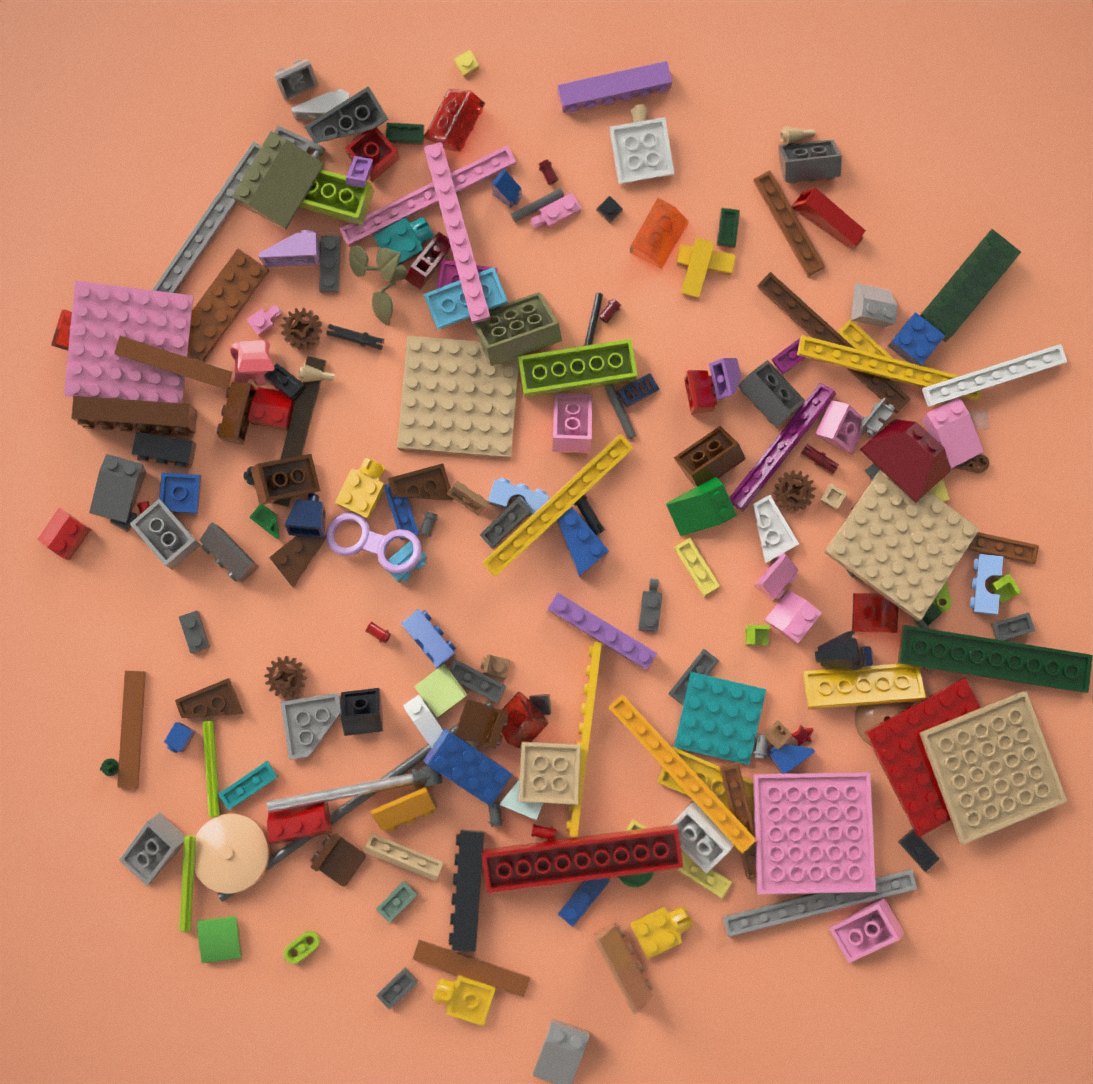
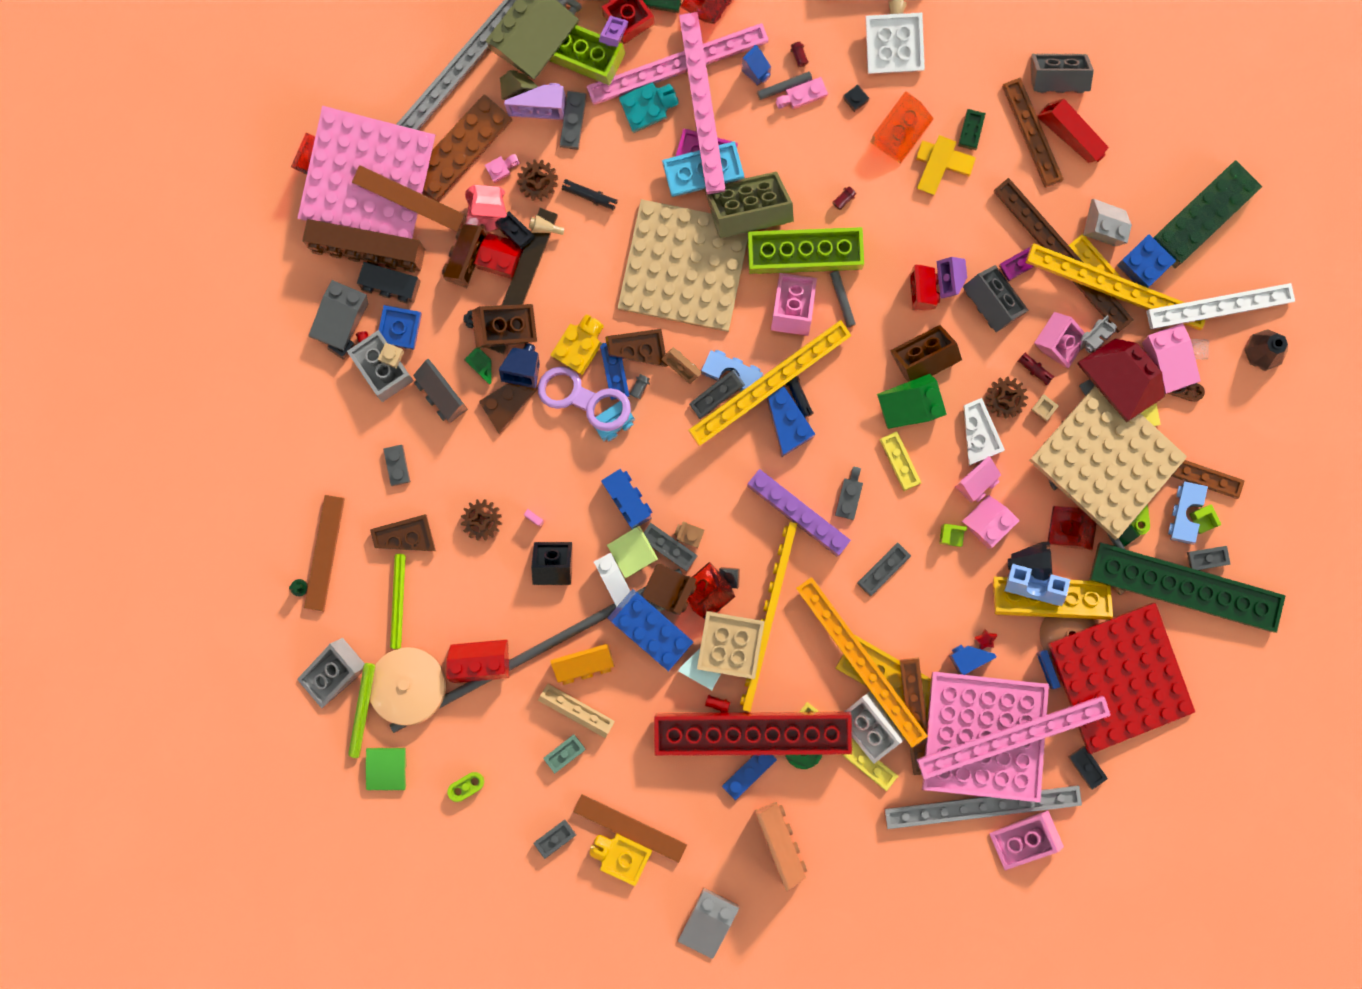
camera: 15 degrees right, 0 degrees up
(63, 534) = (281, 354): red slope -> none
(174, 523) = (390, 355): none -> tan plate
(179, 737) = (370, 566): blue brick -> none
(248, 785) = (432, 621): teal plate -> none
(267, 235) = (515, 84): none -> olive slope
(308, 722) = (498, 567): light grey plate -> none
(338, 668) = (534, 518): none -> bright pink tile
(338, 859) = (511, 705): reddish brown bracket -> none
(378, 632) = (581, 490): red pin -> none
(390, 270) = (630, 123): olive plant -> none
(425, 776) = (608, 634): flat silver piece -> none
(428, 261) = (670, 128): dark red slope -> none
(467, 890) = (635, 751): black brick -> none
(495, 815) = (671, 681): dark grey pin -> none
(594, 318) = (827, 204): black bar -> none
(624, 397) = (848, 284): dark blue slope -> none
(661, 929) = (822, 814): yellow plate -> none
(719, 718) = (905, 612): teal plate -> none
(761, 747) = (943, 646): light grey pin -> none
(777, 734) = (960, 635): medium nougat bracket -> none
(782, 446) = (999, 352): magenta plate -> none
(790, 134) = (1045, 44): tan cone -> none
(832, 675) = (1022, 583): none -> light blue arch
(841, 831) = (1013, 737): none -> bright pink plate
(866, 656) = (1059, 567): clear blue tile -> none
(868, 757) = (1048, 669): none -> blue tile
(993, 767) = (1172, 694): tan plate -> none
(1044, 412) = (1266, 349): none -> cone

